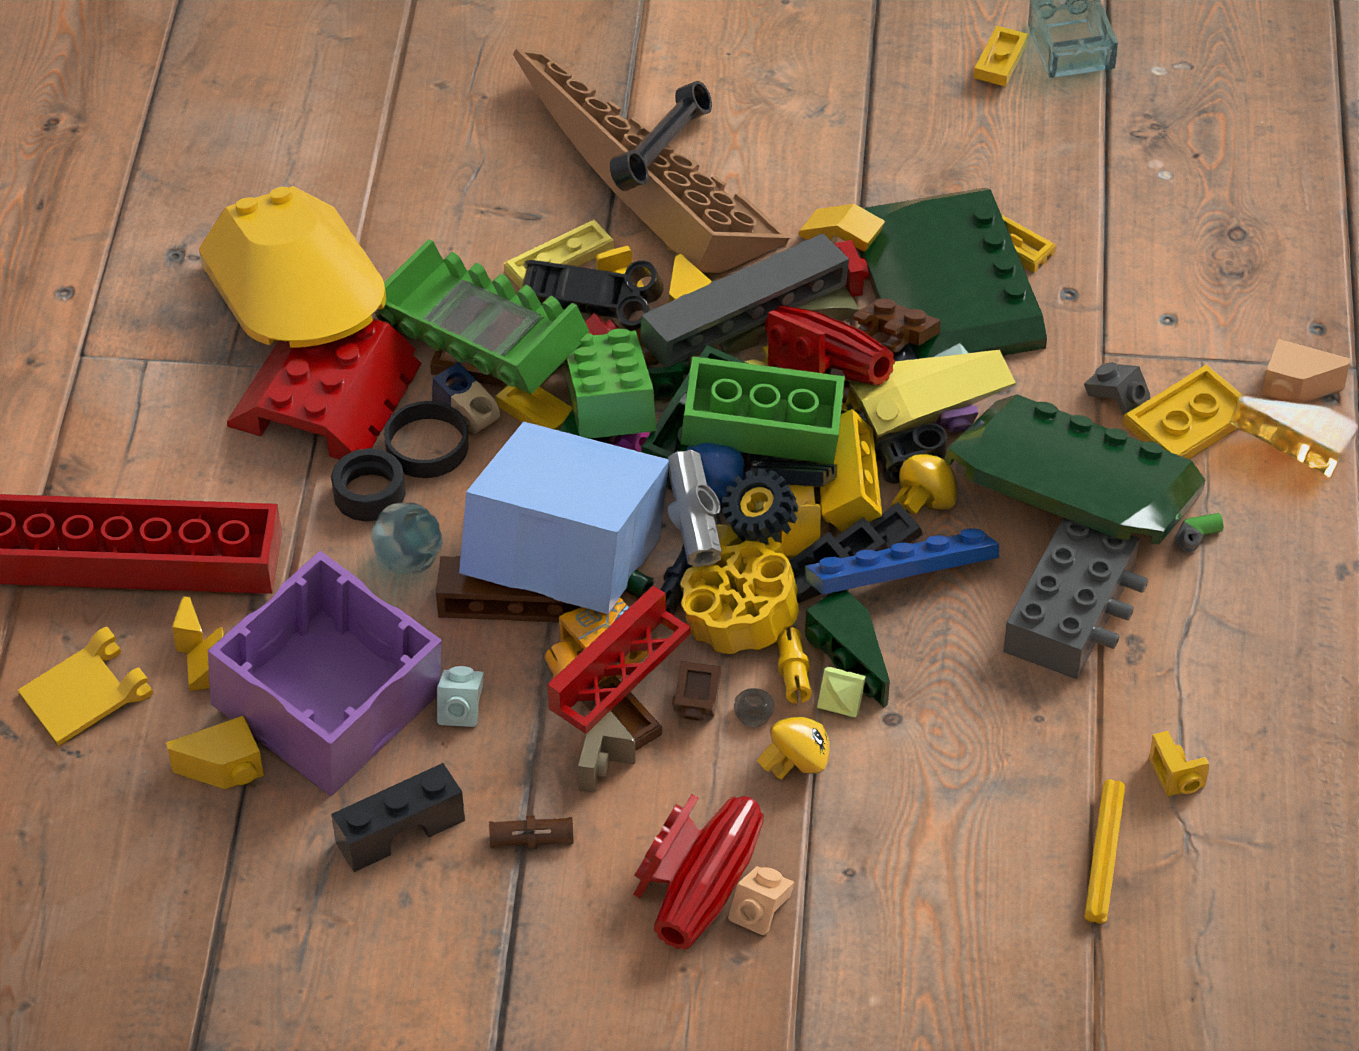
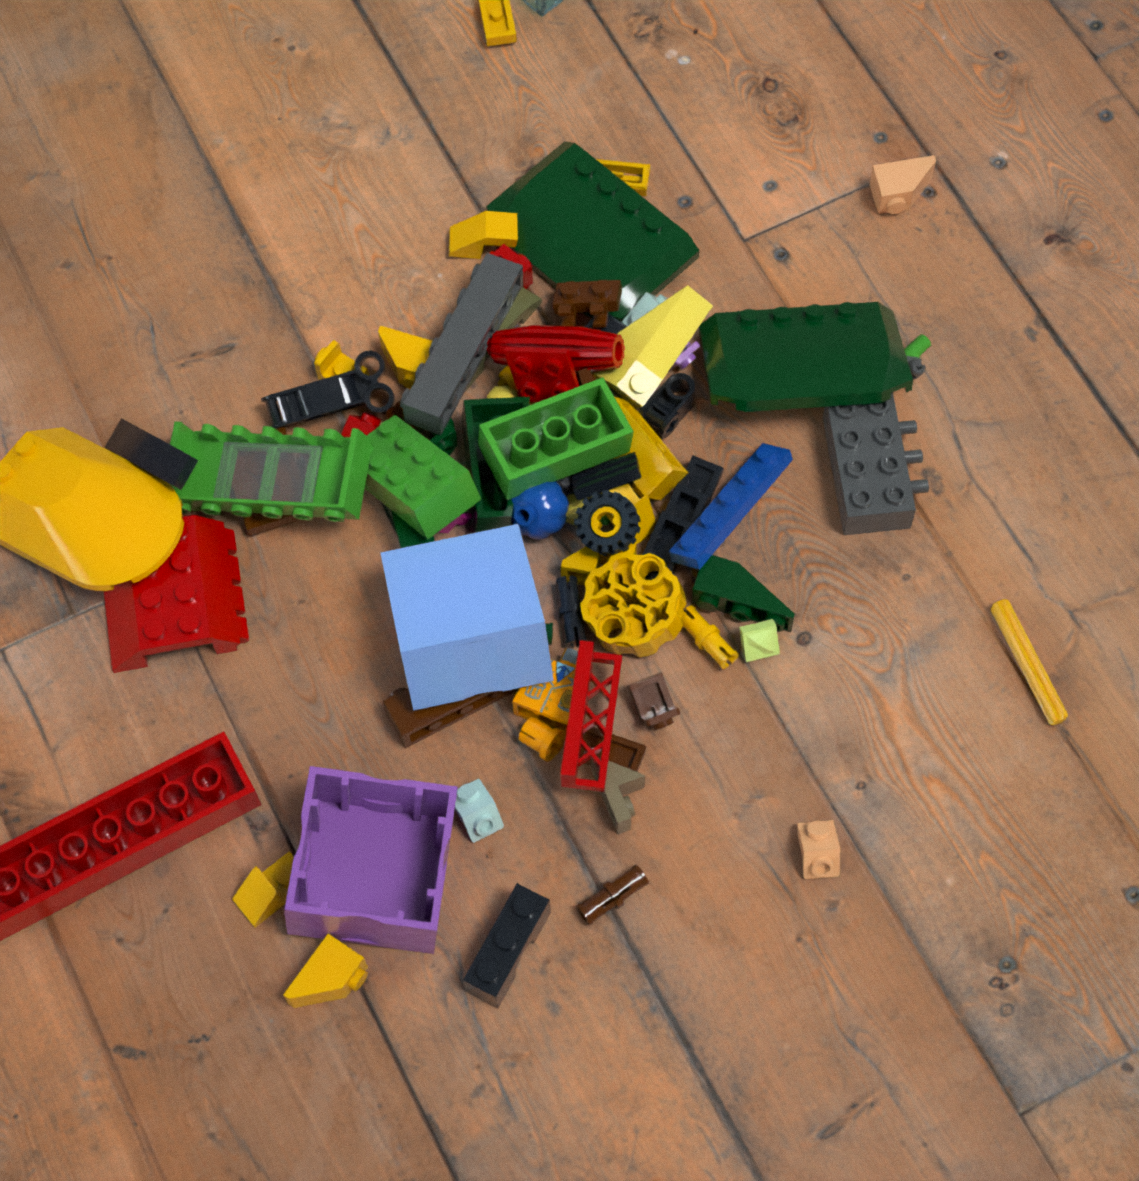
camera: 30 degrees left, 15 degrees up
(83, 689) = (169, 982): yellow flag -> none
(186, 627) = (221, 878): yellow slope -> none
(363, 463) = (264, 641): black tyre -> none
(389, 258) = (151, 454): none -> black slope
(406, 538) = (343, 699): clear light blue plant -> none
(427, 410) = (283, 566): black tyre -> none
(466, 397) = (296, 545): leg -> none
(535, 408) = (370, 526): yellow tile -> none
(568, 249) = (275, 371): light yellow tile -> none
(630, 168) = (299, 273): black piece -> none
(677, 200) = (344, 277): medium nougat wedge -> none
(694, 508) = (559, 552): light grey piece -> none
(698, 866) = (761, 850): red plate -> none
(753, 715) = (697, 697): clear smoke plate -> none
(797, 743) = (760, 704): yellow piece -> none
(926, 482) = (698, 427): yellow piece -> none
(1121, 383) = (778, 262): dark grey bracket -> none
(1173, 770) = (1030, 567): yellow bracket -> none
(1187, 414) = (842, 260): yellow tile -> none
(1300, 430) = (942, 233): clear yellow slope -> none

